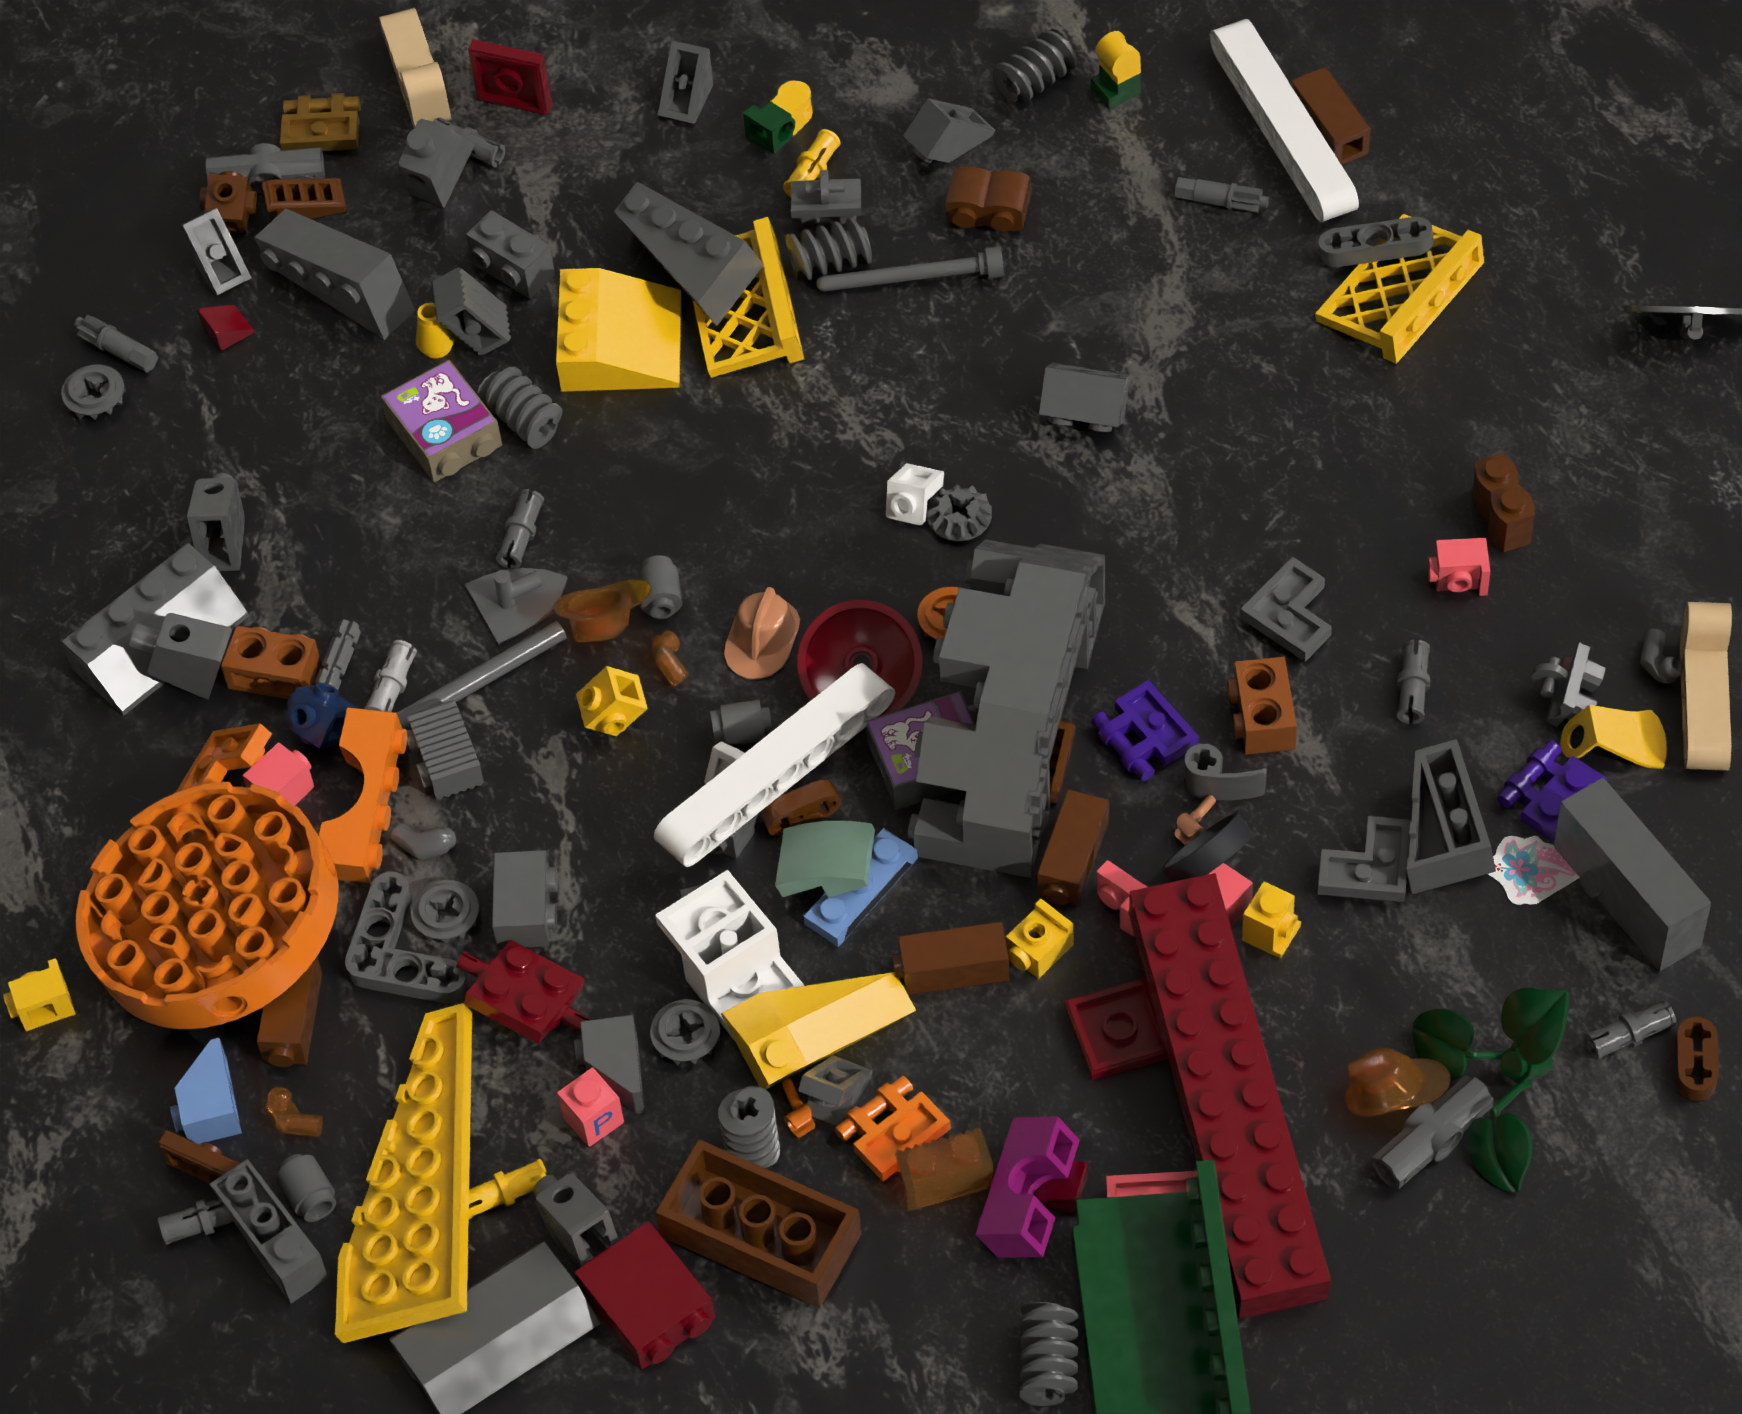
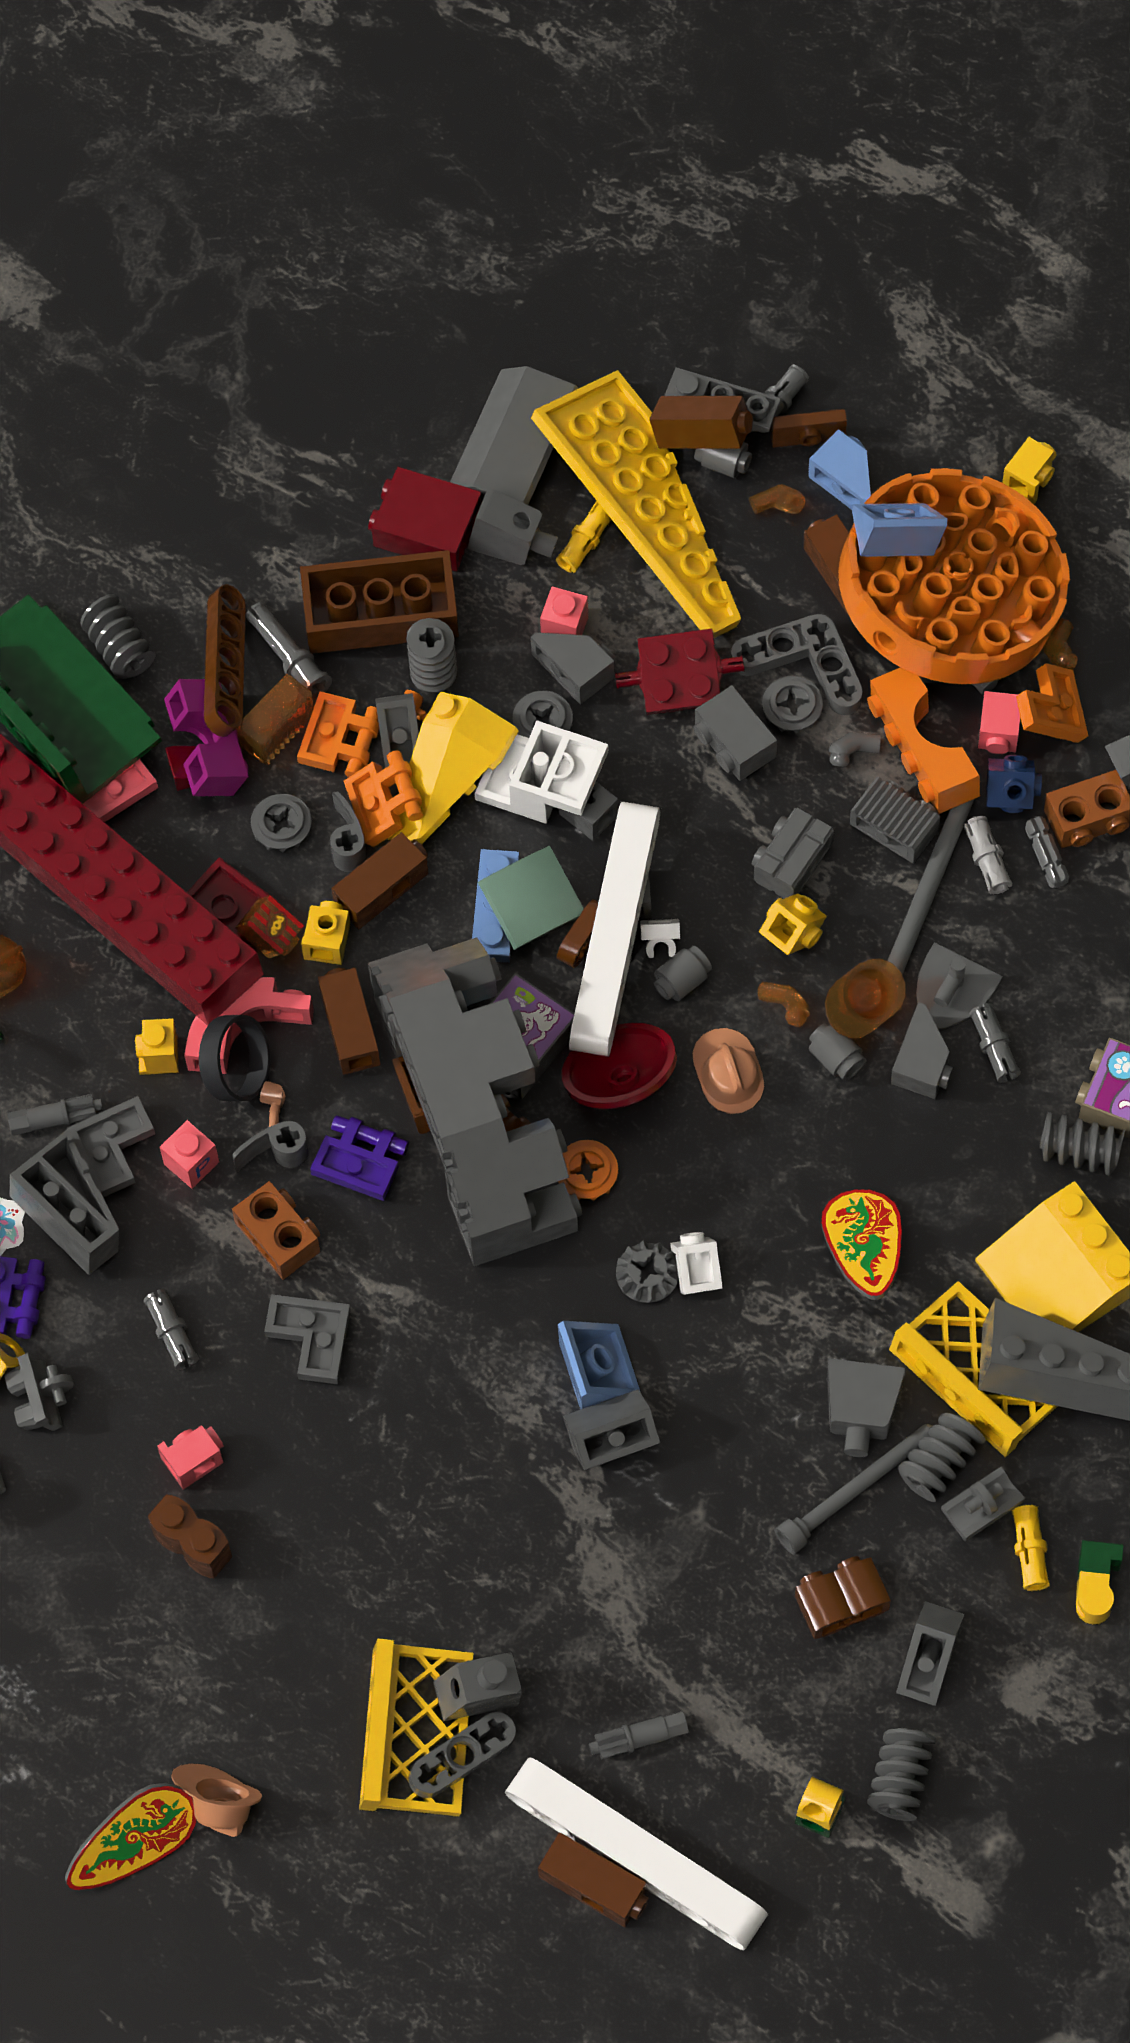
camera: 145 degrees right, 10 degrees up
(226, 927) = (898, 529): none -> medium blue slope
(306, 1198) = (701, 422): none -> reddish brown brick
(559, 770) = (793, 853): none -> dark grey brick
(592, 543) = (922, 1057): none -> dark grey slope
(760, 428) = (864, 1239): none -> shield
(859, 319) = (862, 1401): none -> dark grey torso
(882, 1223) = (296, 661): none -> dark grey pin
(908, 1031) = (373, 801): none -> orange plate
(944, 1263) = (216, 669): none -> reddish brown beam
(958, 1011) = (347, 836): none -> dark grey panel
(1013, 1059) = (275, 808): none -> dark grey gear
(1059, 457) = (596, 1361): none -> medium blue slope
(1091, 966) = (270, 927): none -> clear orange brick
(1303, 807) = (189, 1154): none -> coral brick
(1330, 263) = (483, 1684): none -> dark grey torso
(1407, 921) = (54, 1114): none -> dark grey piece
(1598, 309) = (217, 1797): none -> nougat piece

